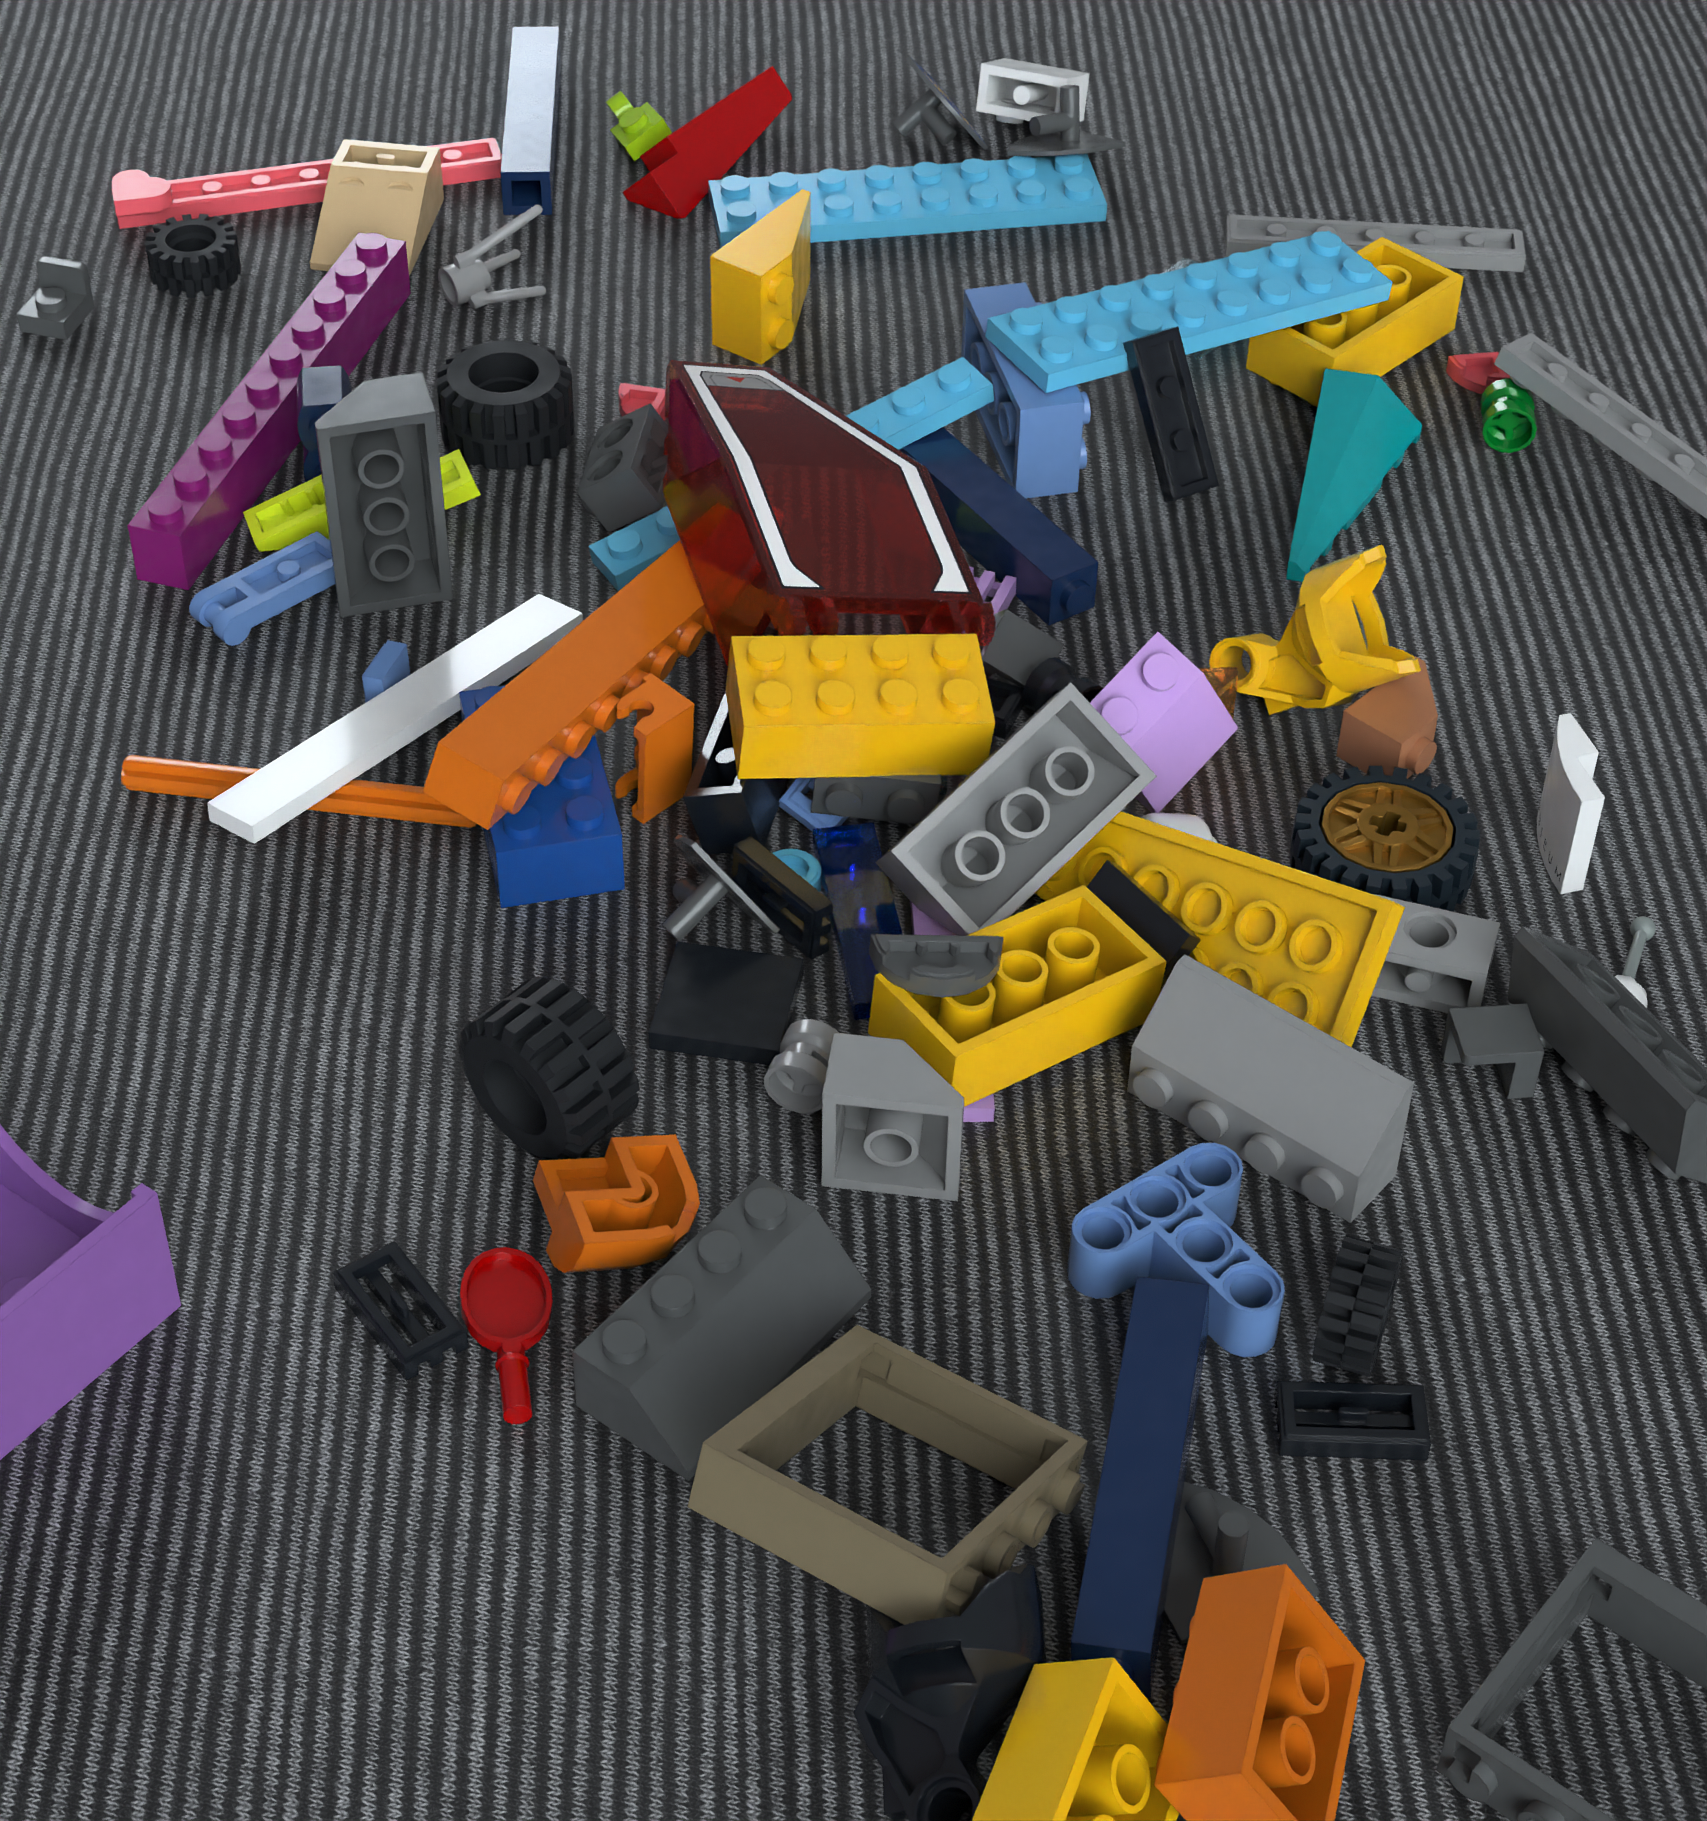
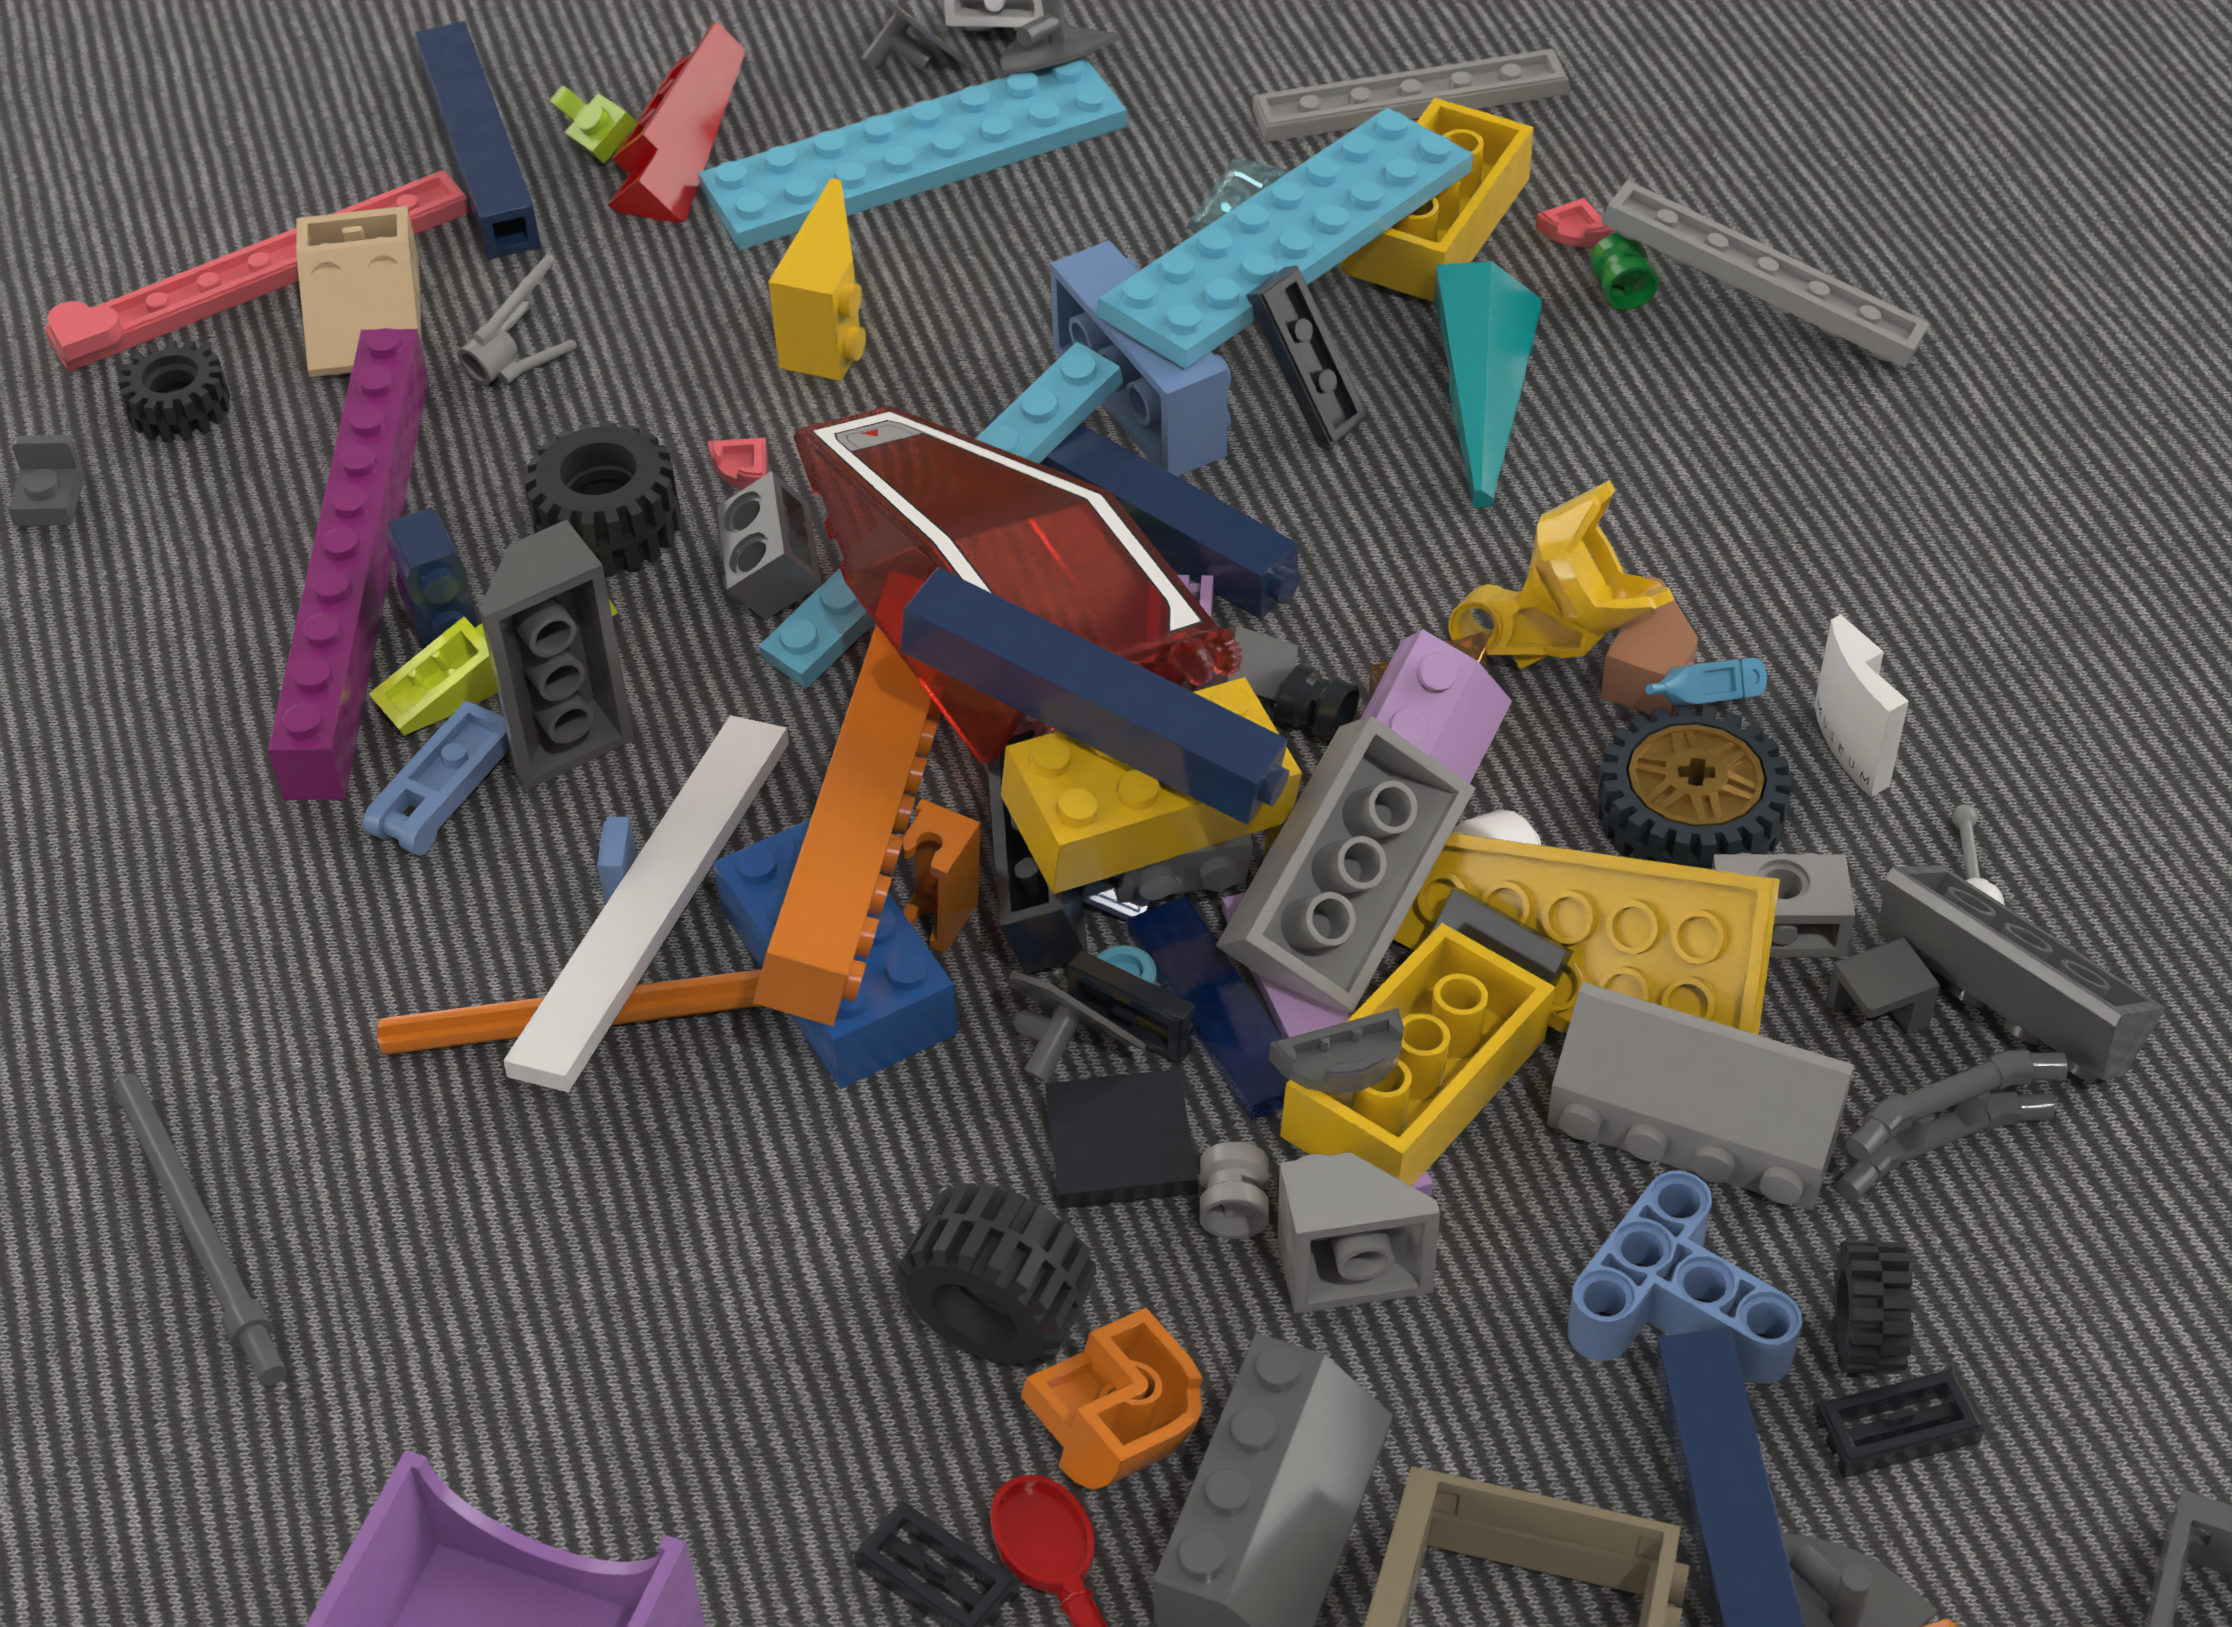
camera: 15 degrees left, 5 degrees up
(821, 607) = (1094, 696): none -> dark blue brick
(1438, 756) = (1712, 681): none -> dark azure piece
(1536, 1177) = (1909, 1116): none -> dark grey piece

